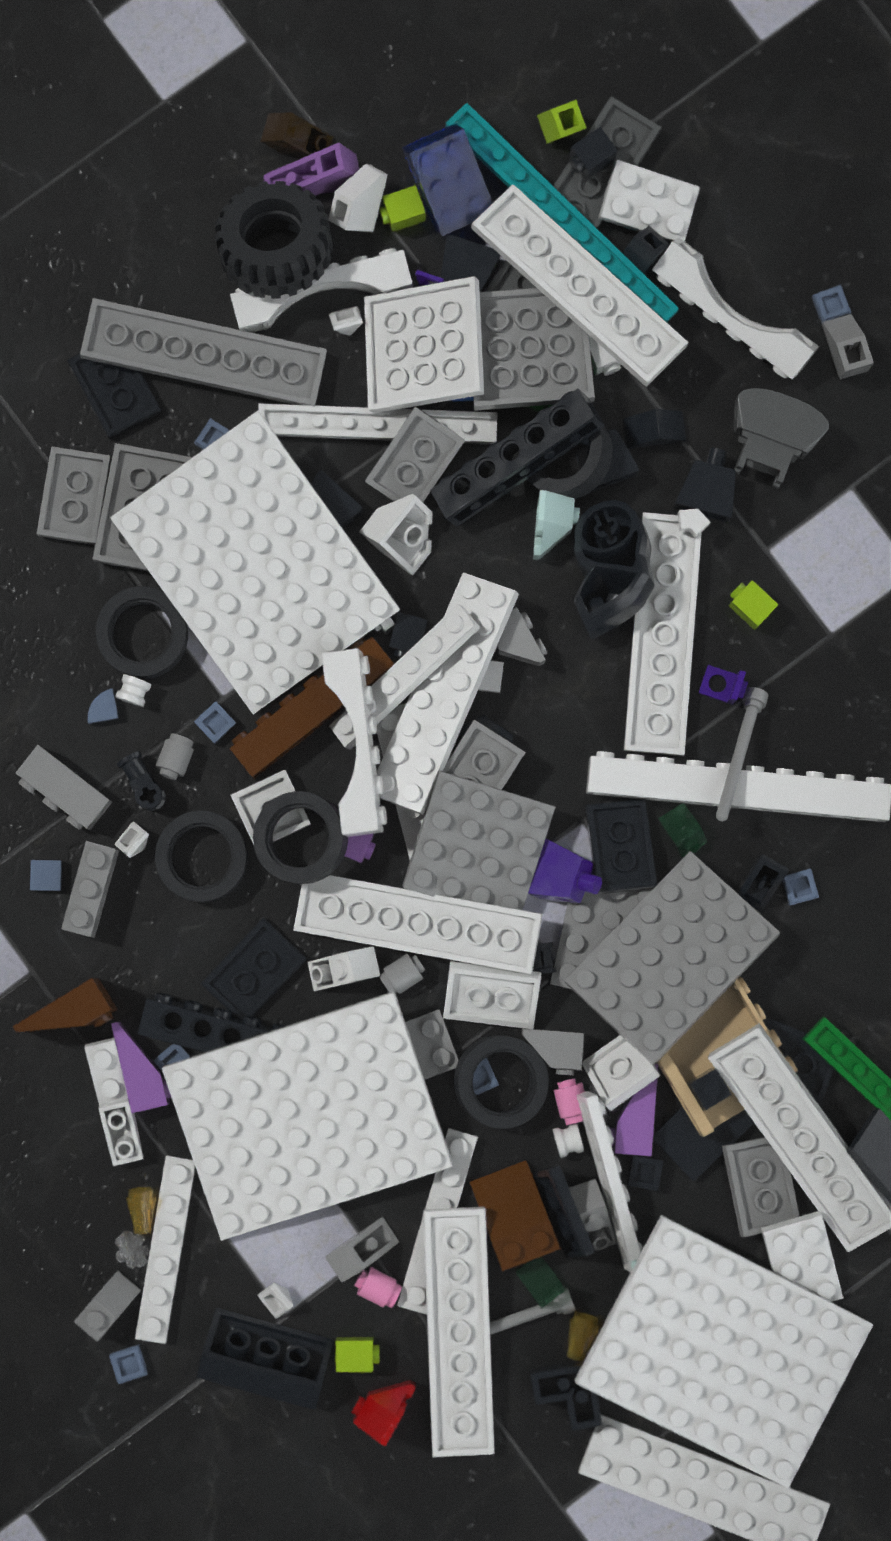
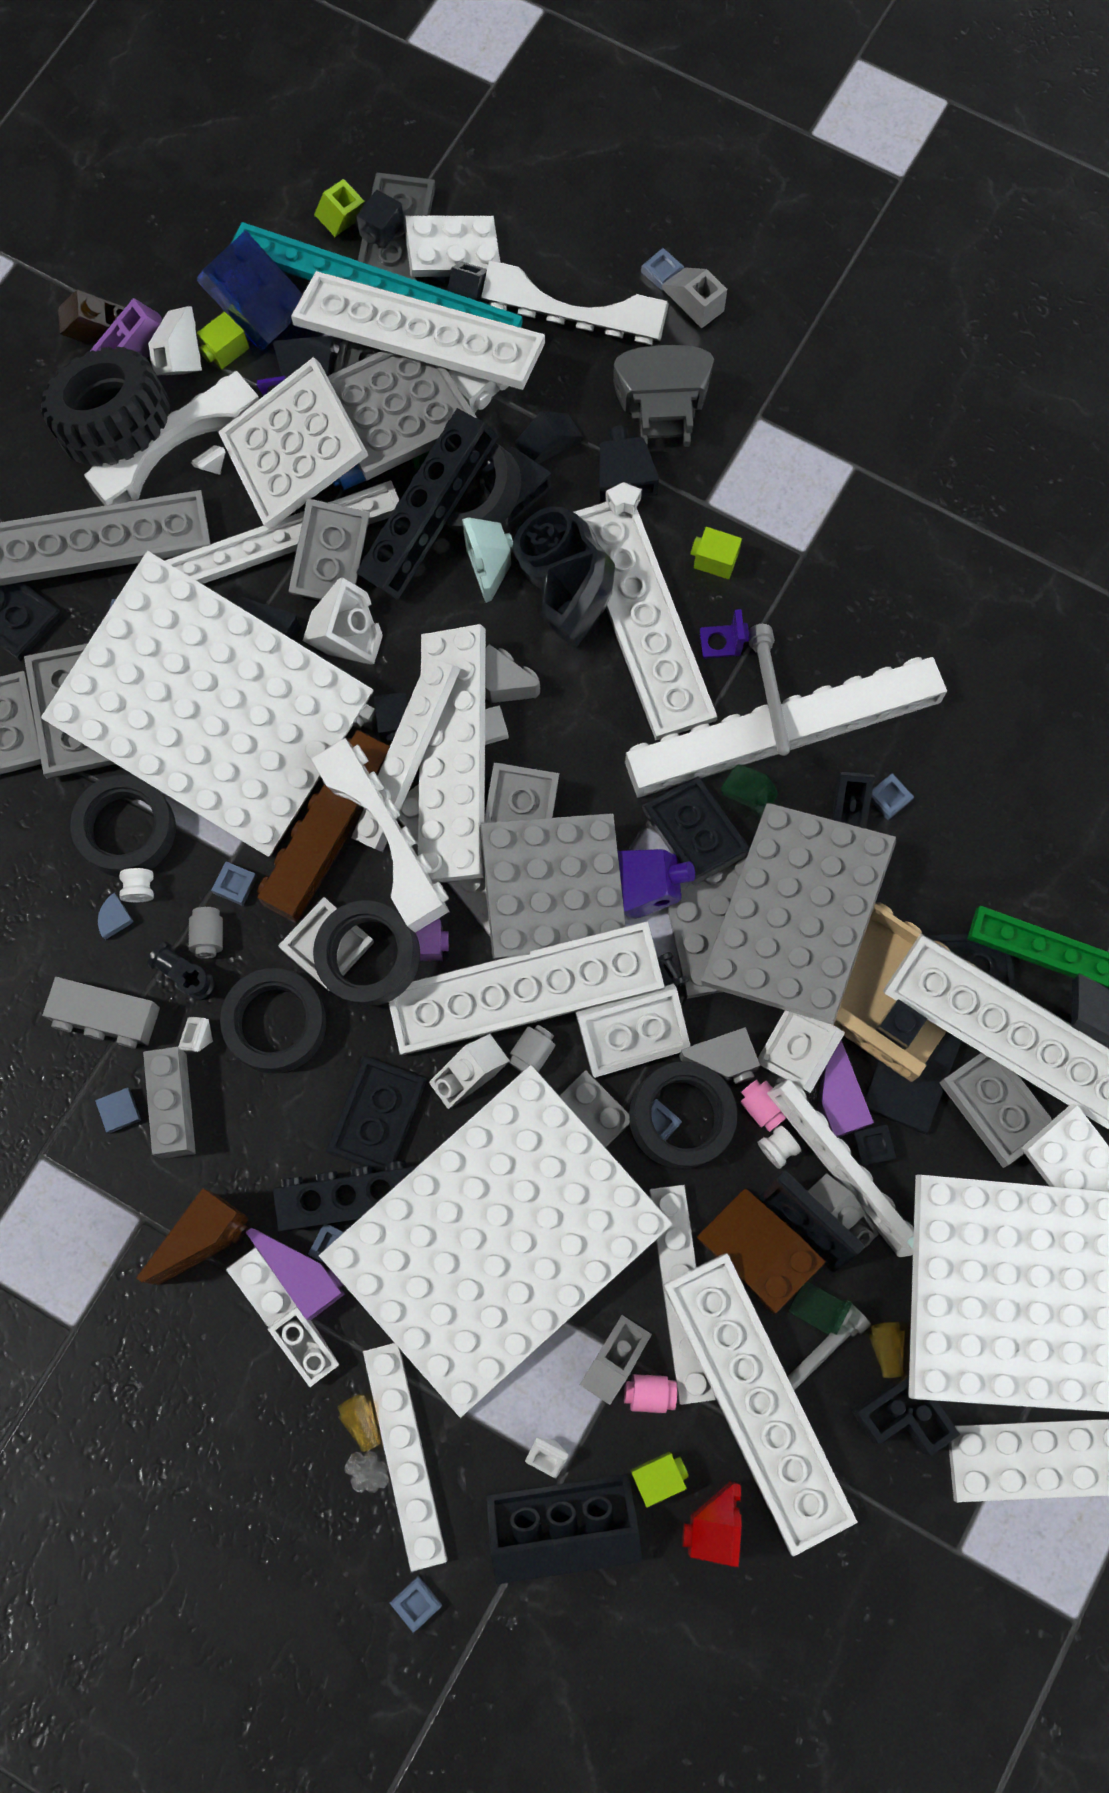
camera: 15 degrees left, 10 degrees down
(107, 1306) = (365, 1548): light grey slope -> none

